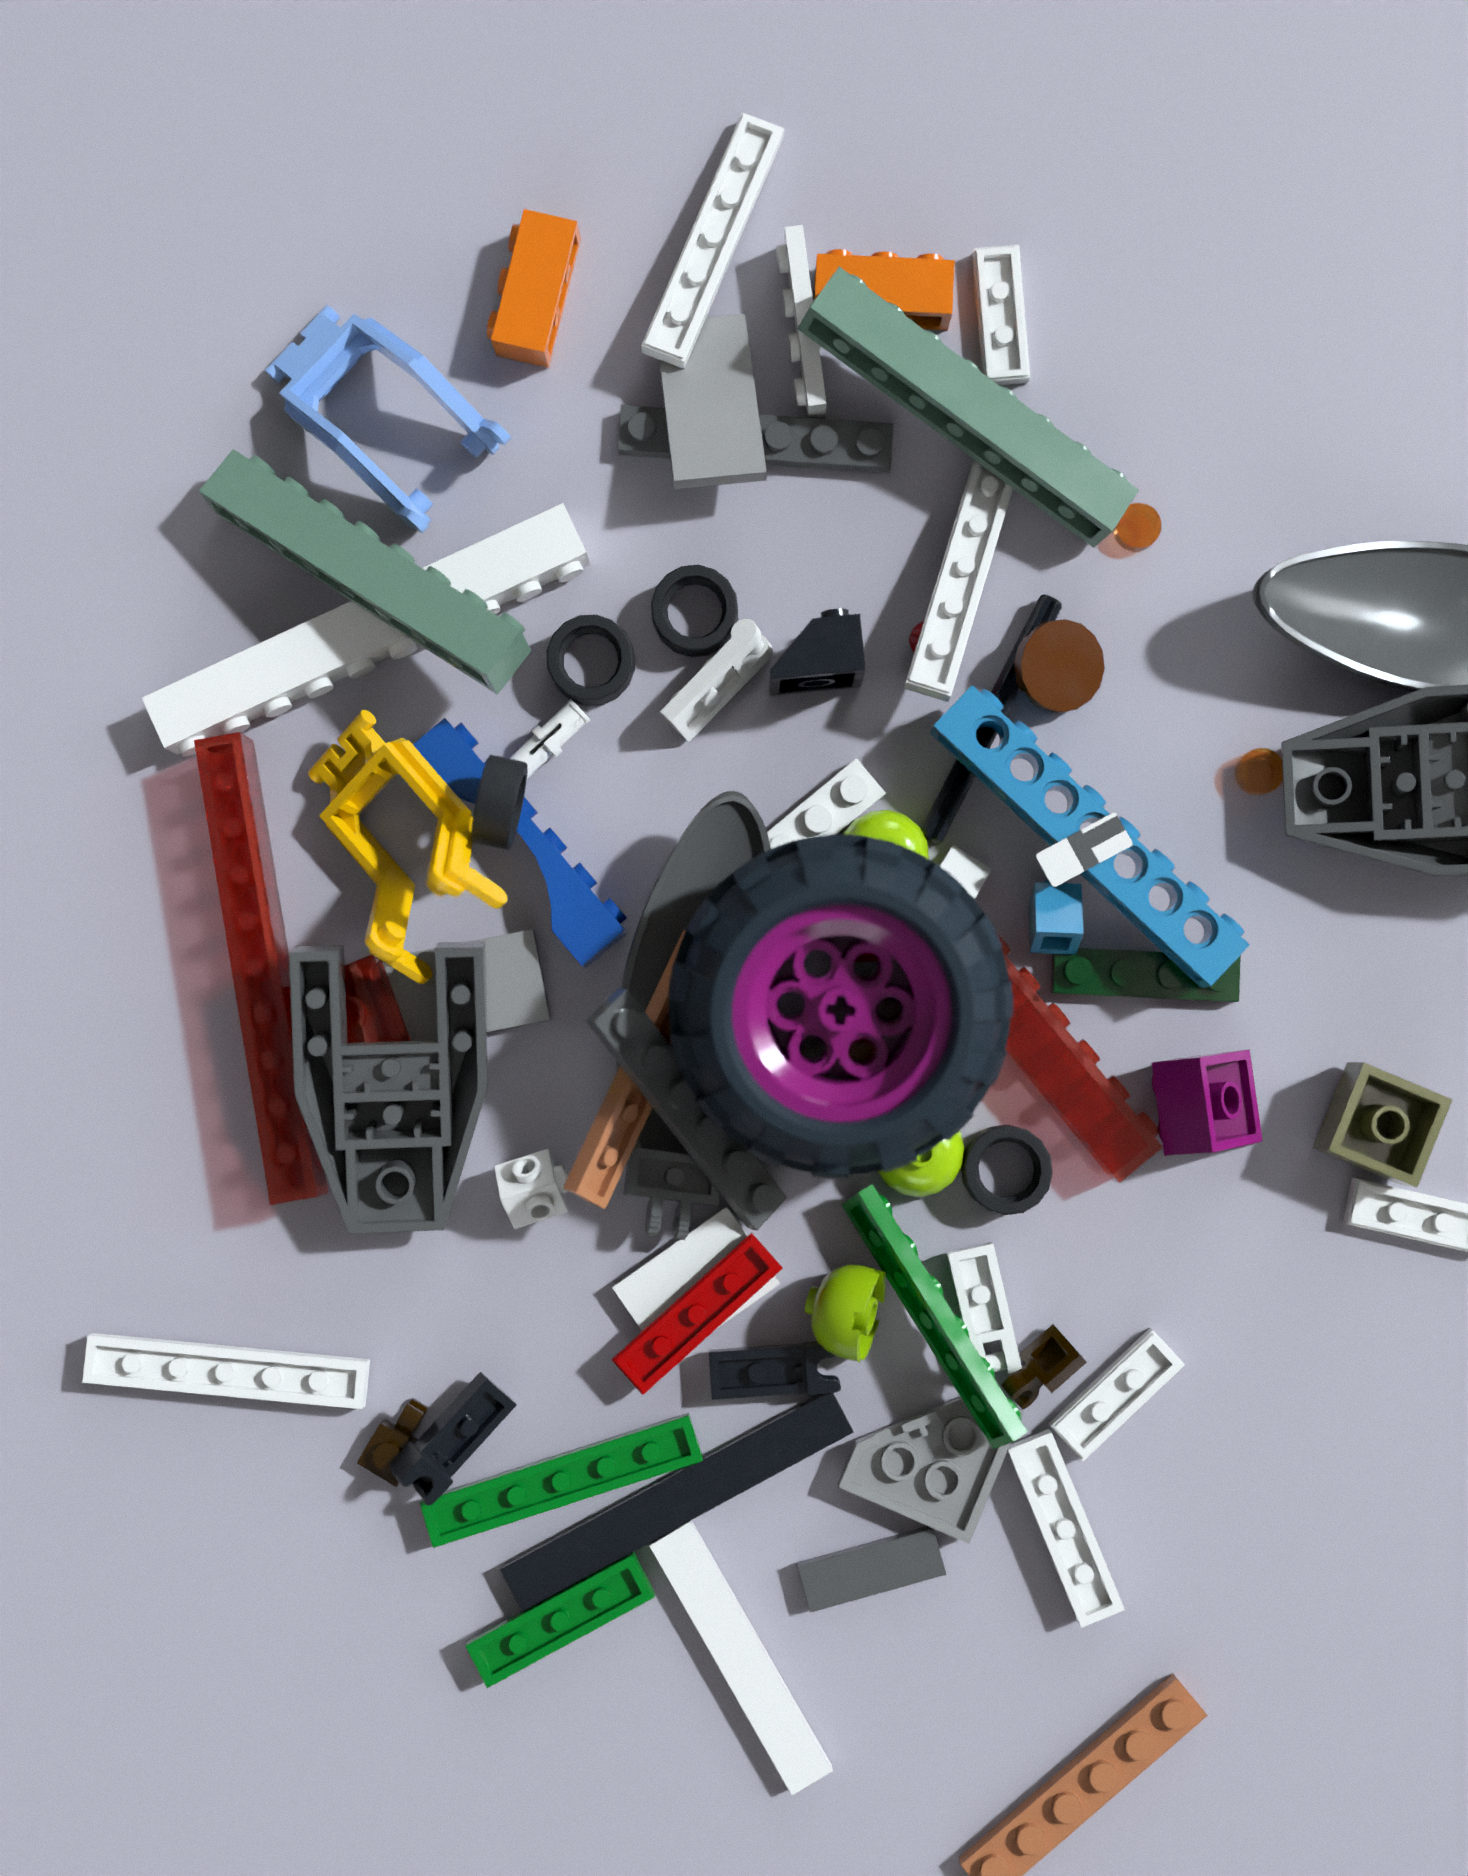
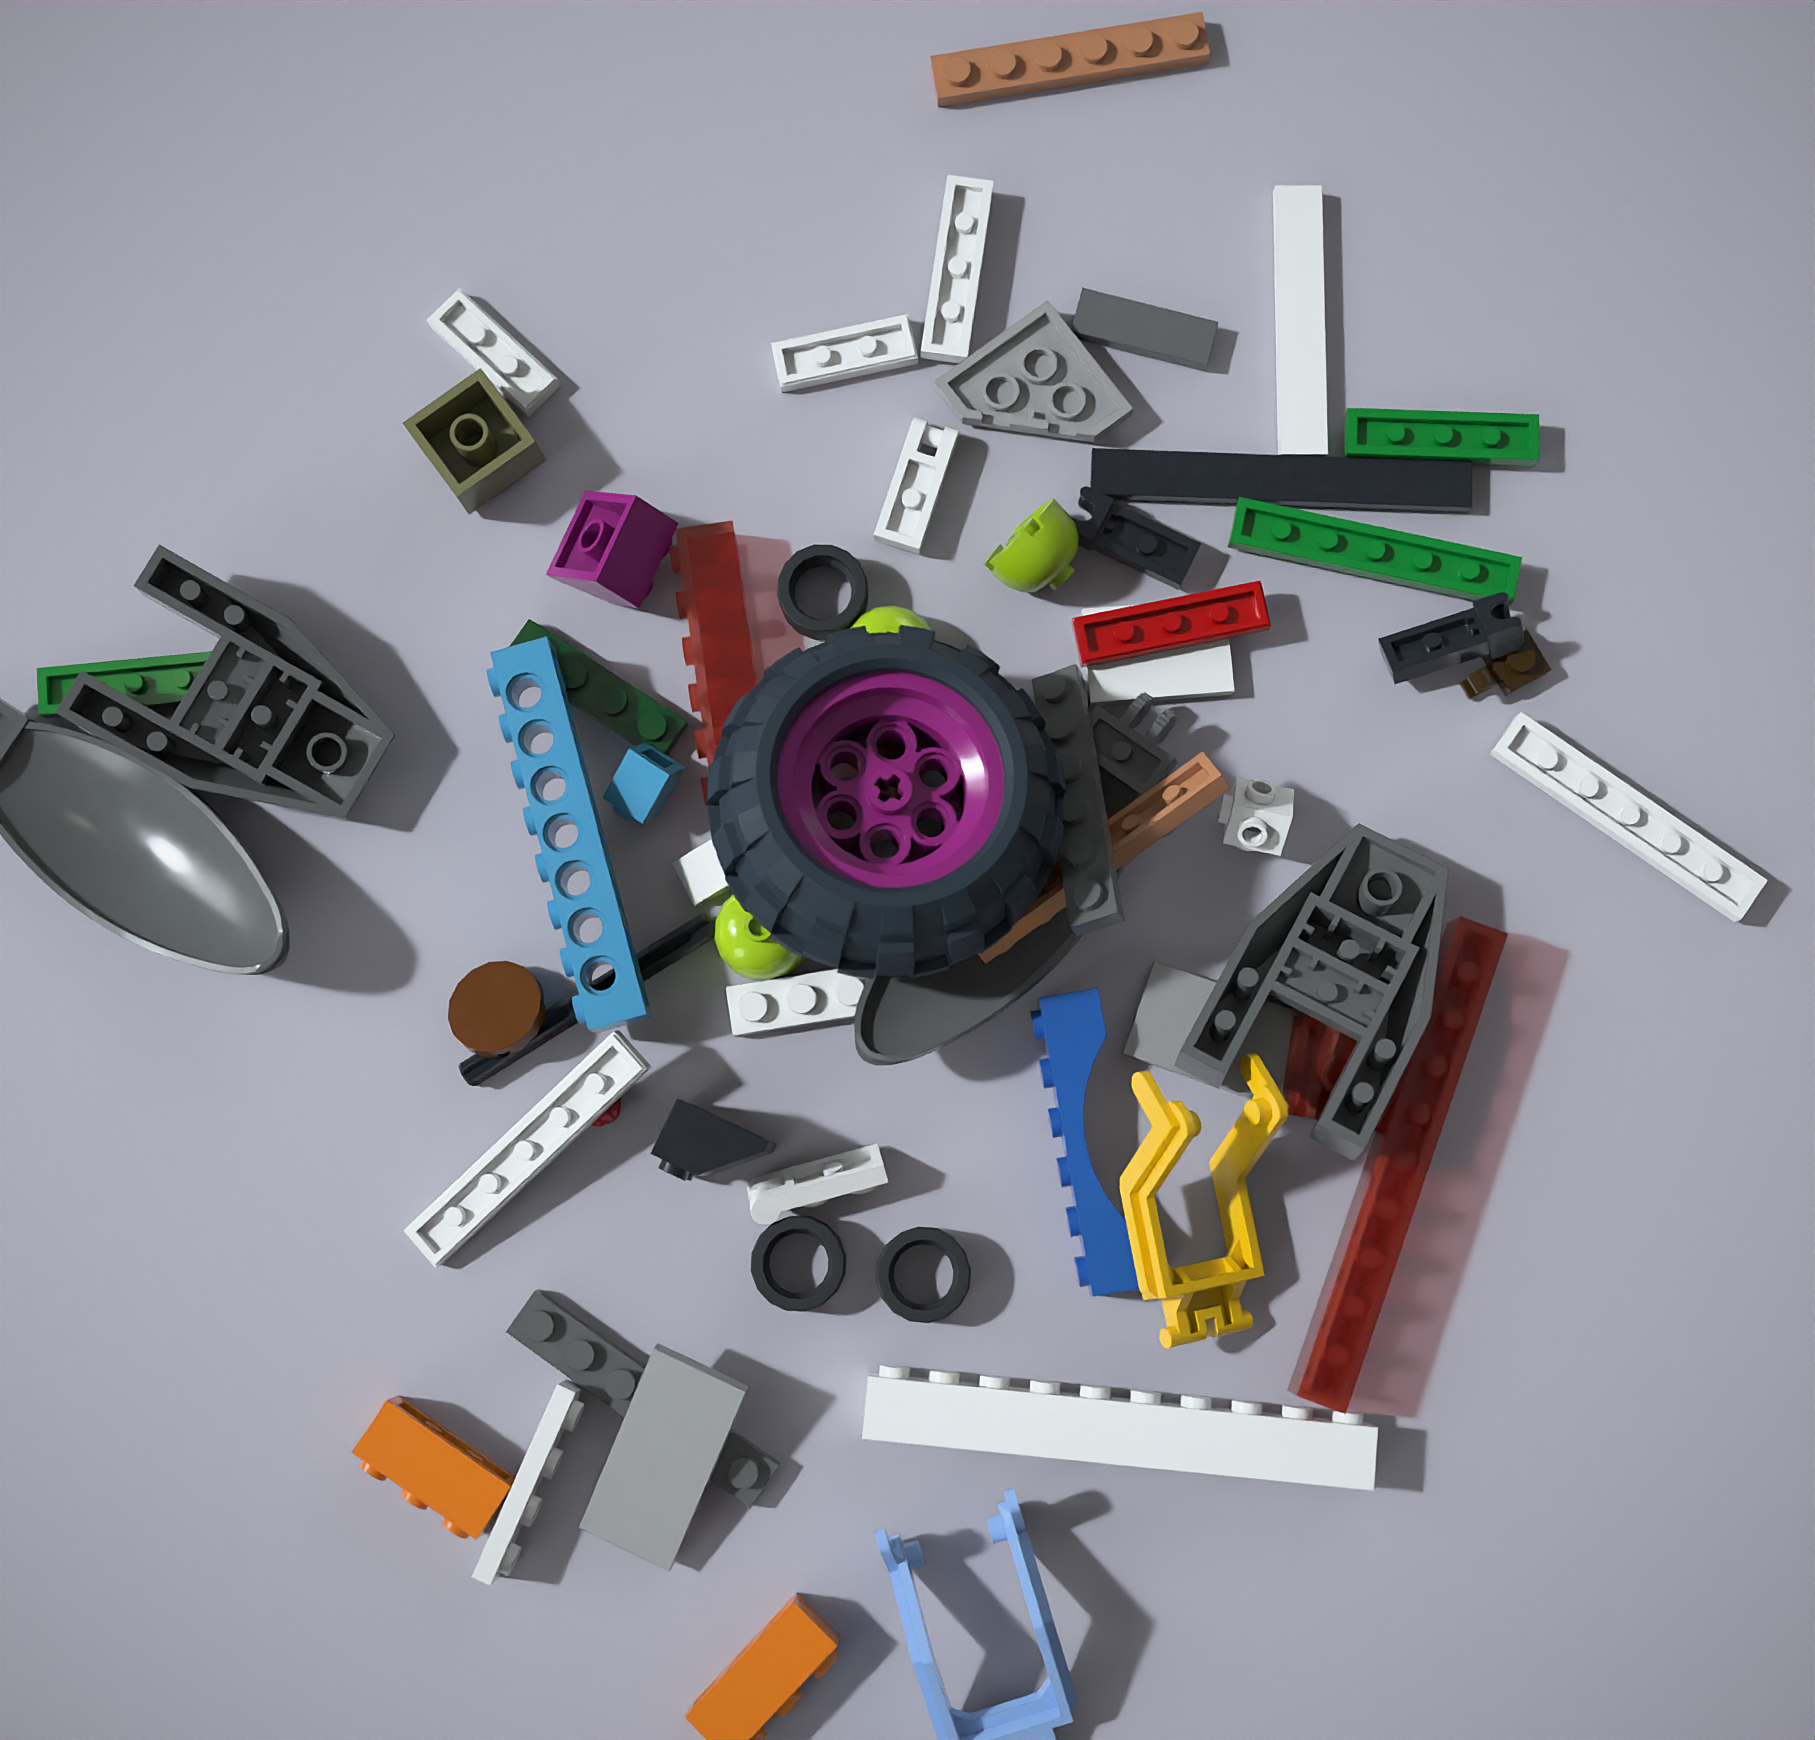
camera: 150 degrees left, 5 degrees down
(367, 571) = (1089, 1484): sand green brick -> none
(499, 802) = (1088, 1176): black tyre -> none
(551, 737) = (1043, 1215): white pin -> none
(712, 241) = (564, 1619): white tile -> none
(939, 1326) = (964, 516): green plate -> none
(967, 407) = (430, 1301): sand green brick -> none
(1001, 314) = (340, 1378): white tile -> none
(1048, 1362) = (886, 408): dark brown plate -> none
(1084, 849) = (581, 820): white sticker -> none
(1138, 527) = (344, 1098): clear orange tile -> none
(1259, 771) = (380, 809): clear orange tile -> none

